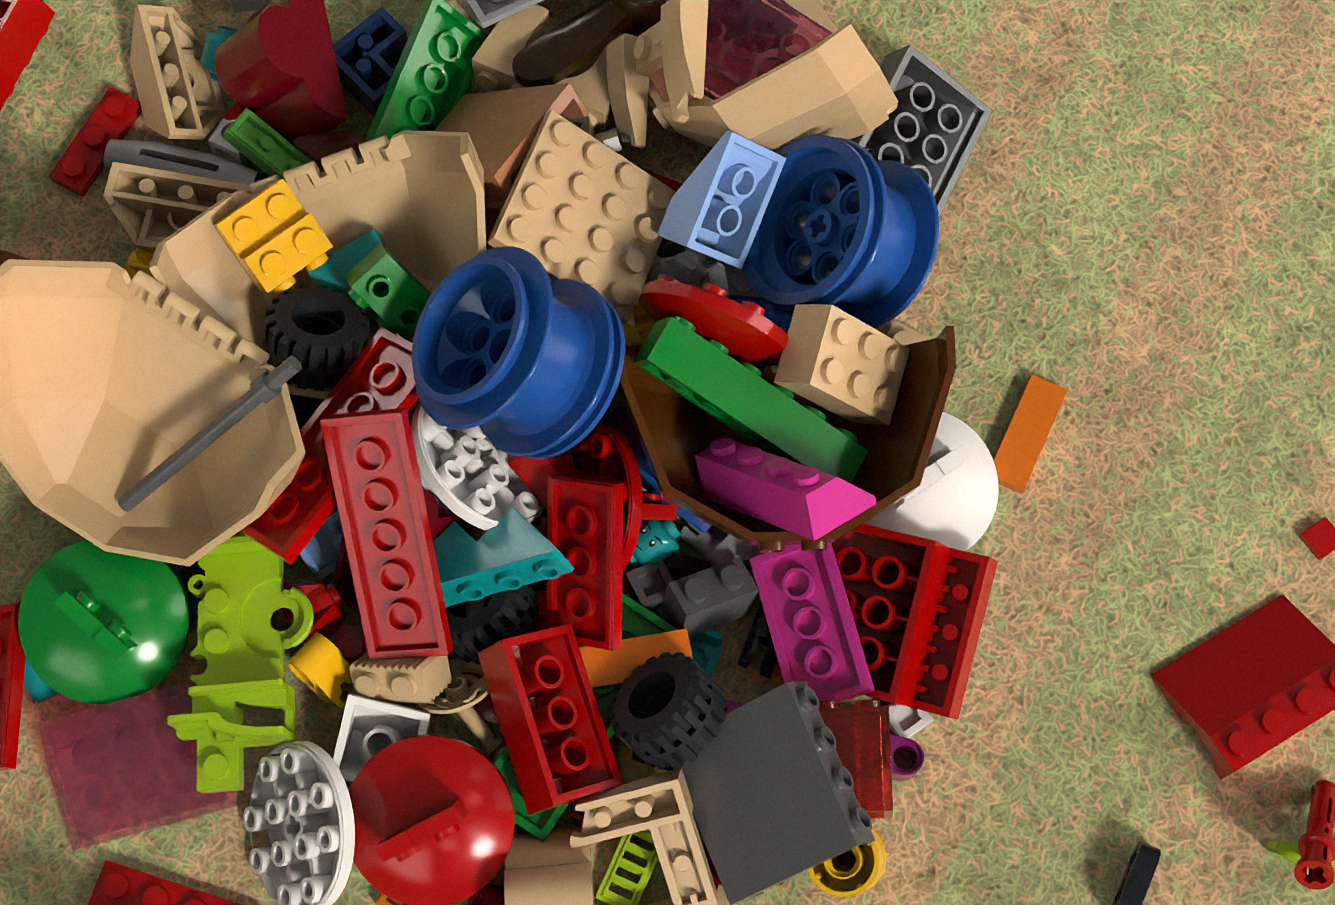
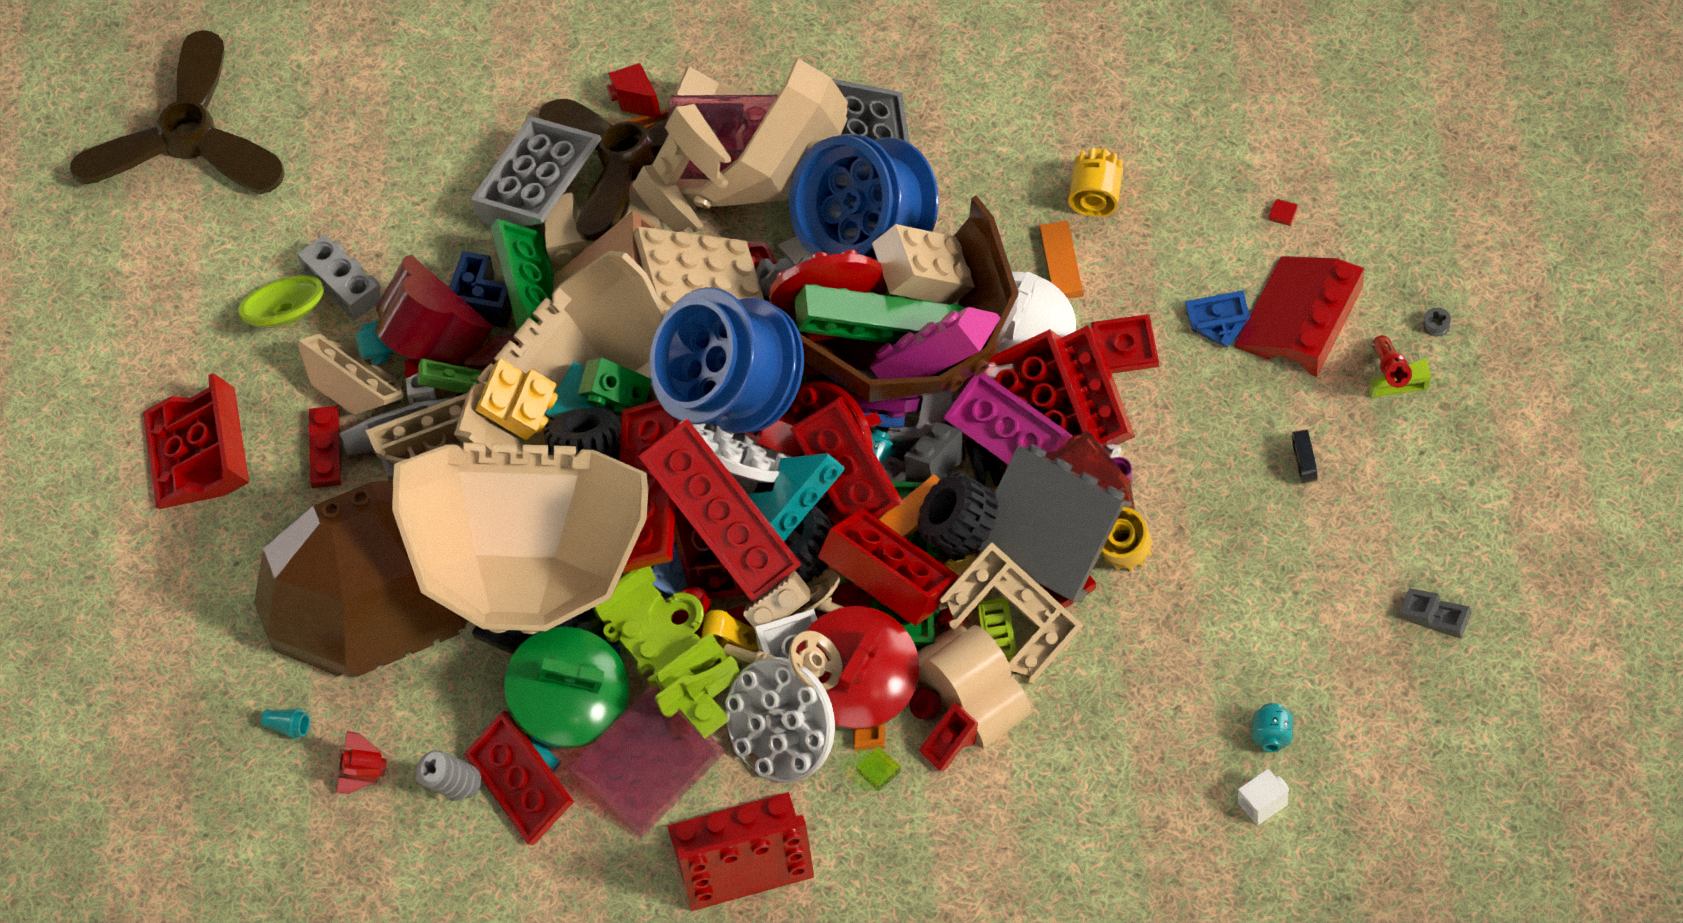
camera: 25 degrees left, 15 degrees down
(261, 390) = (590, 459): dark grey bar -> none
(364, 798) = (810, 657): none -> tan dish
(724, 200) = (780, 219): light blue slope -> none
(1029, 589) = (1127, 343): none -> red tile
(1129, 365) = (1096, 183): none -> yellow gear
(1158, 627) = (1218, 316): none -> blue slope

